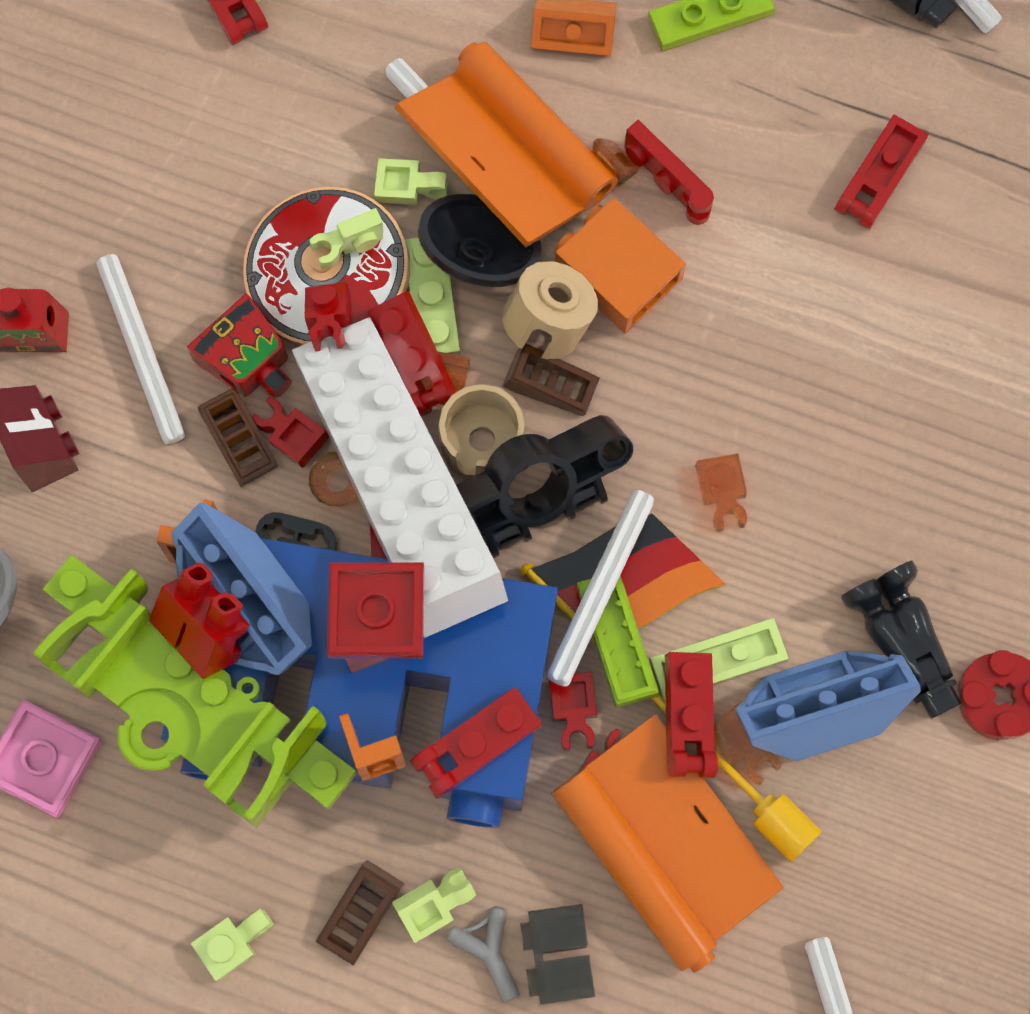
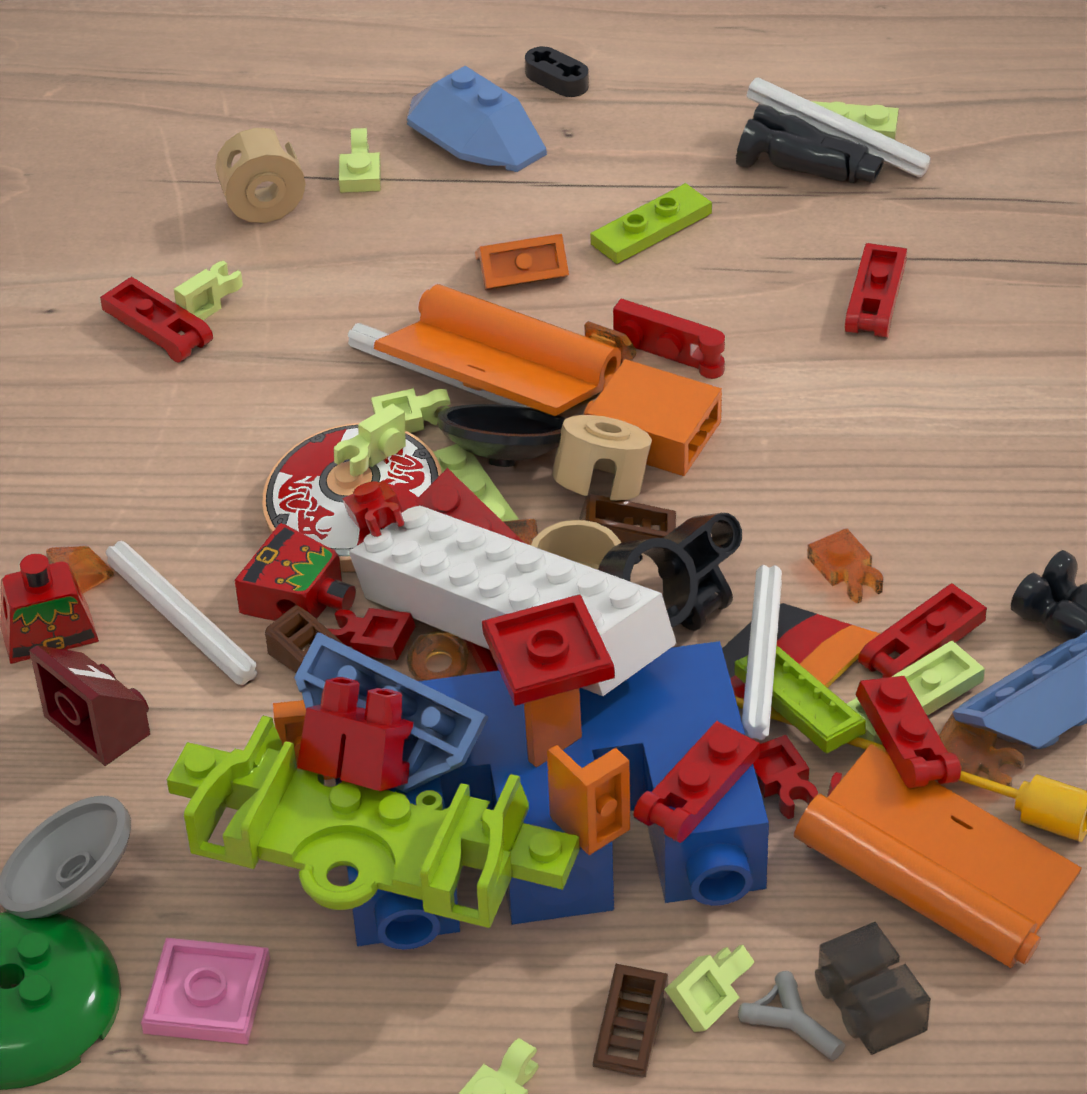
camera: 15 degrees left, 30 degrees down
(71, 267) = (84, 563): none -> clear orange slope
(756, 596) = (925, 629): none -> red plate

